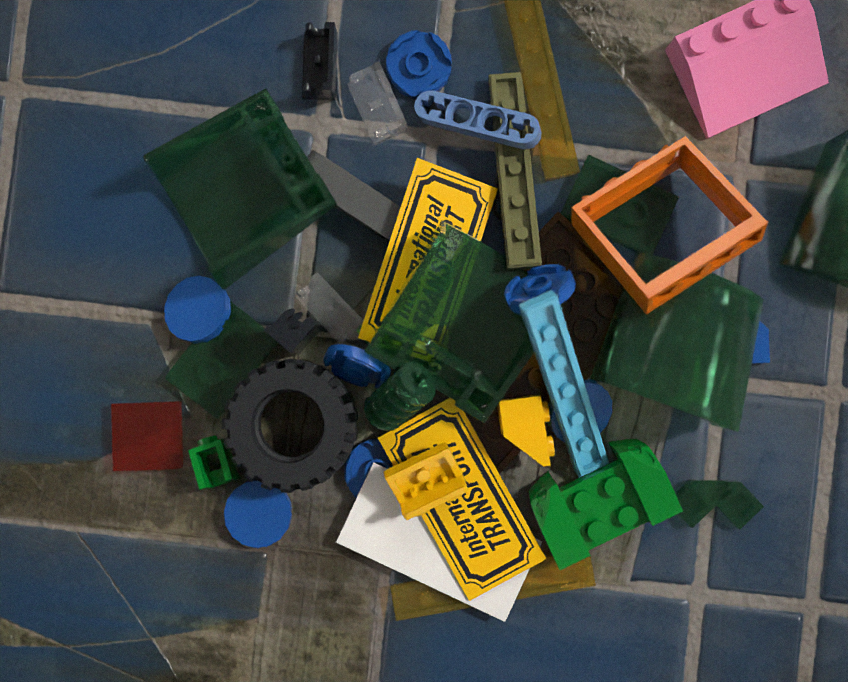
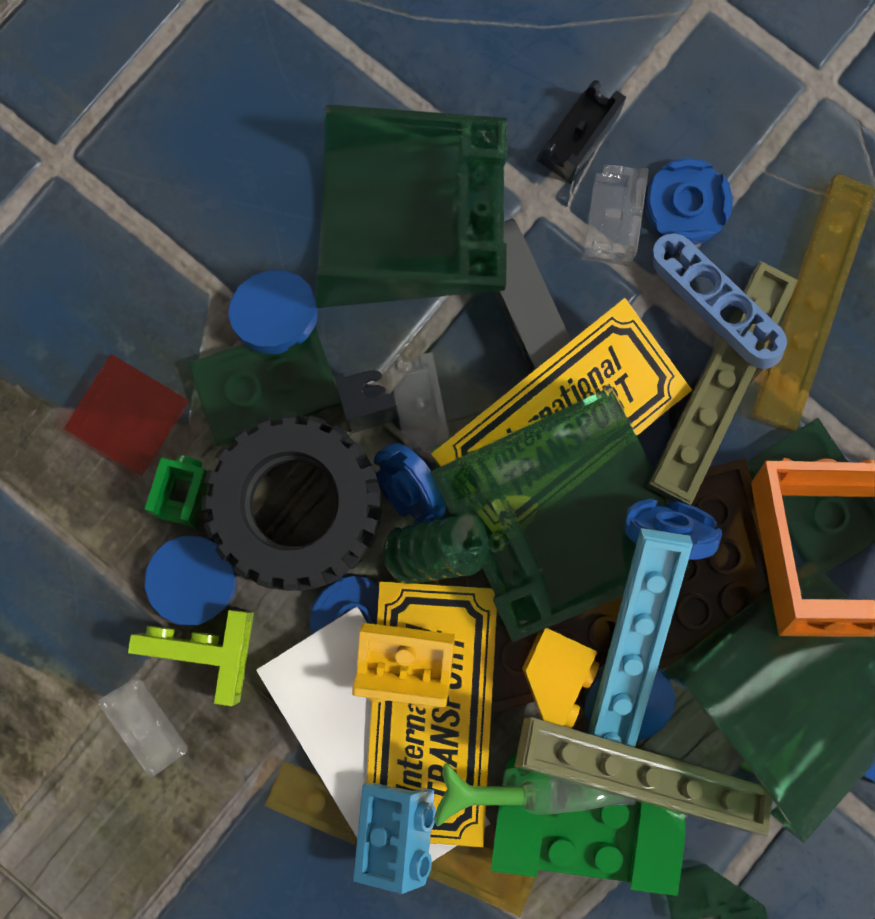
camera: 30 degrees right, 5 degrees down
(289, 622) = (143, 727): none -> clear slope
(295, 551) = (205, 649): none -> lime bracket
(488, 588) = (394, 837): none -> dark azure bracket
(557, 508) = (536, 795): none -> piece
(615, 454) = (643, 776): none -> olive tile

